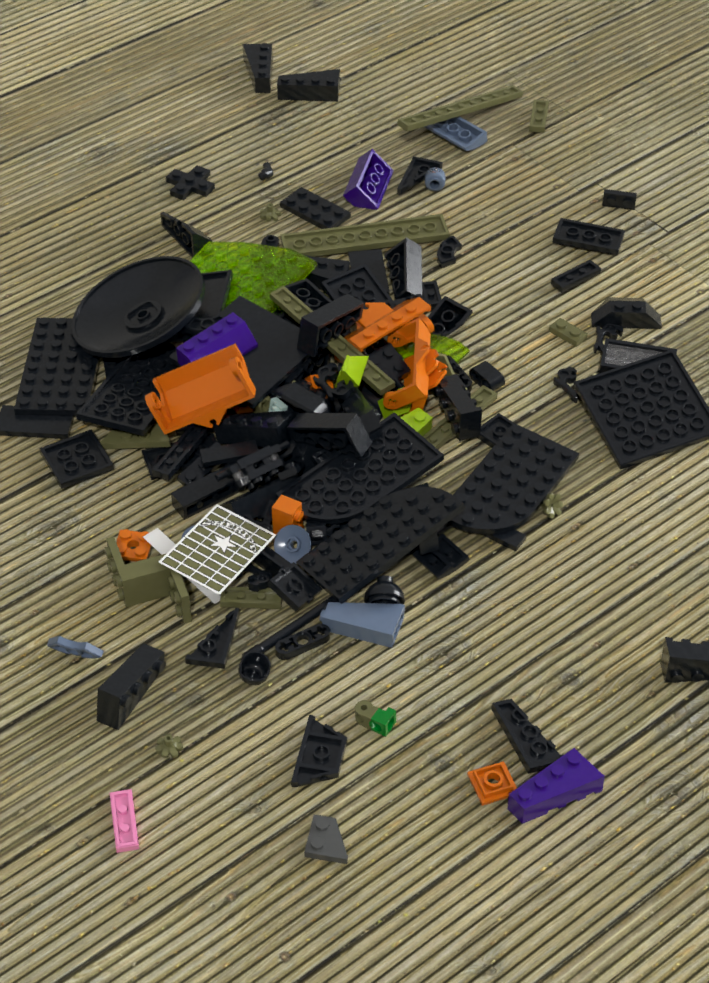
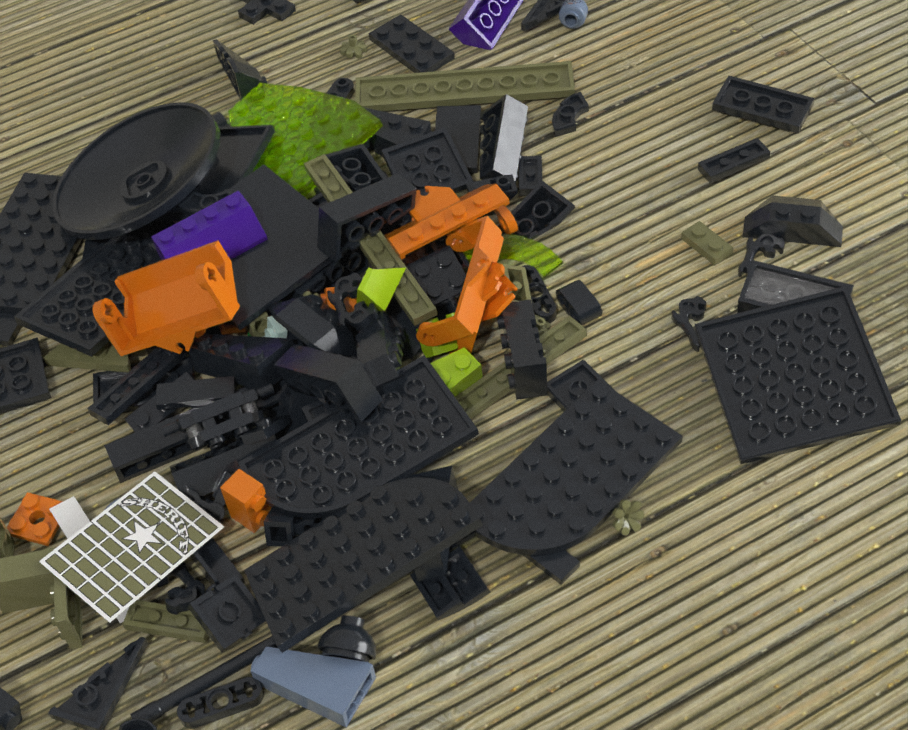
camera: 15 degrees right, 5 degrees up
(284, 543) = (245, 541): sand blue dish -> none
(619, 199) = (815, 53): black plate -> none

